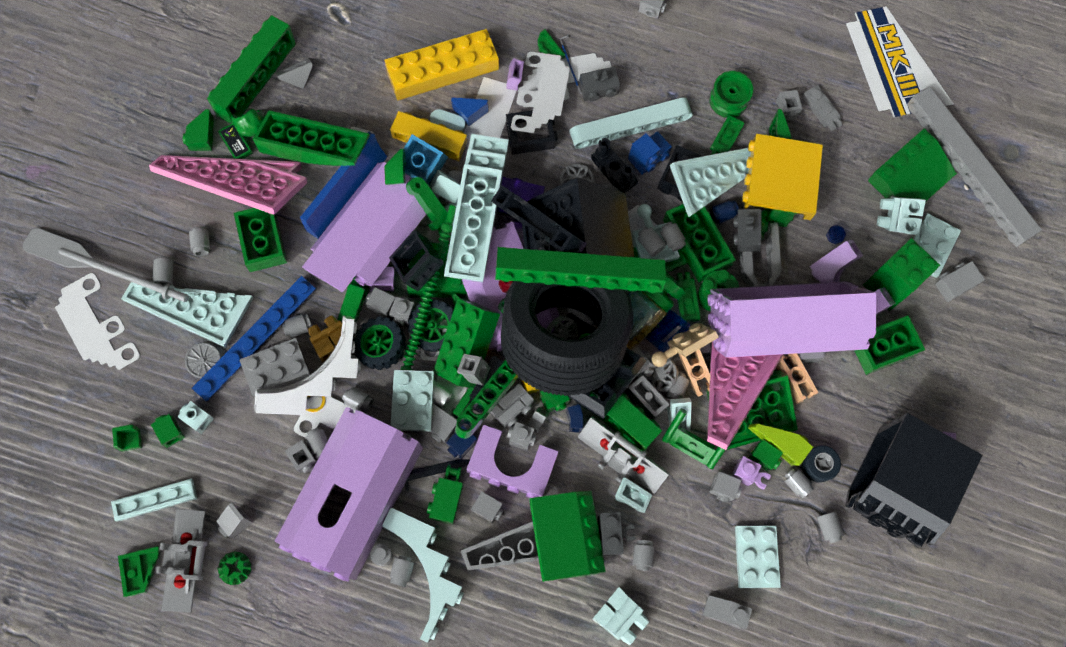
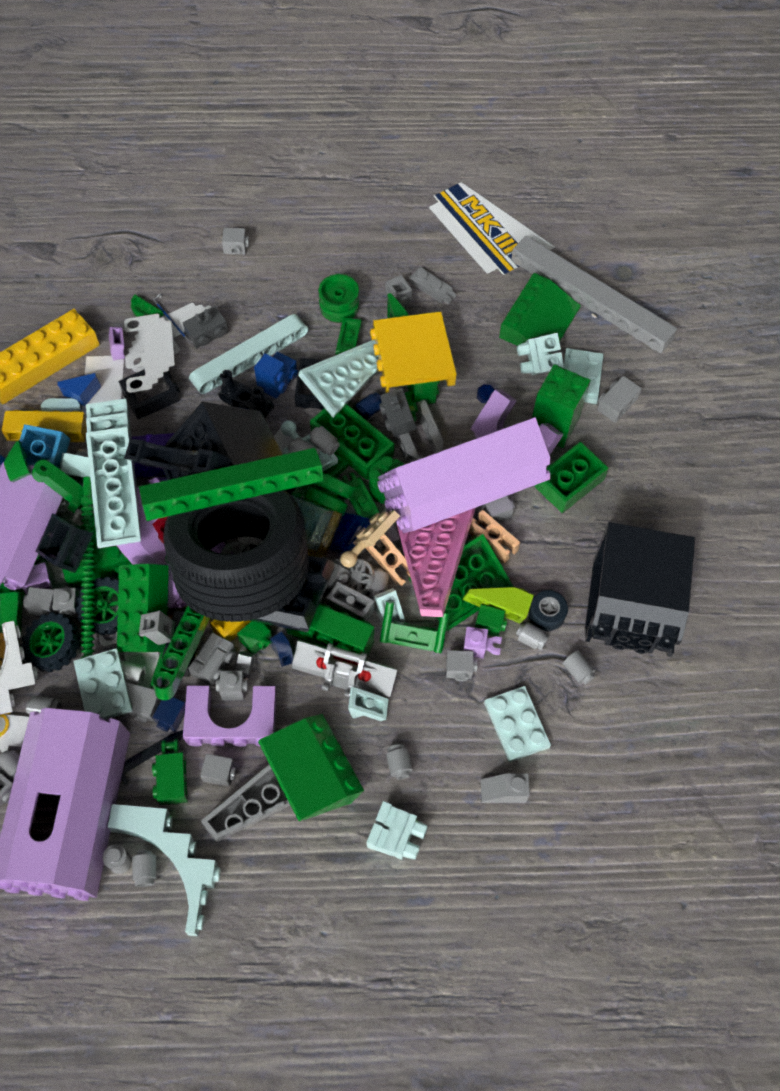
camera: 15 degrees left, 10 degrees down
(612, 533) = (360, 751): dark grey brick -> none

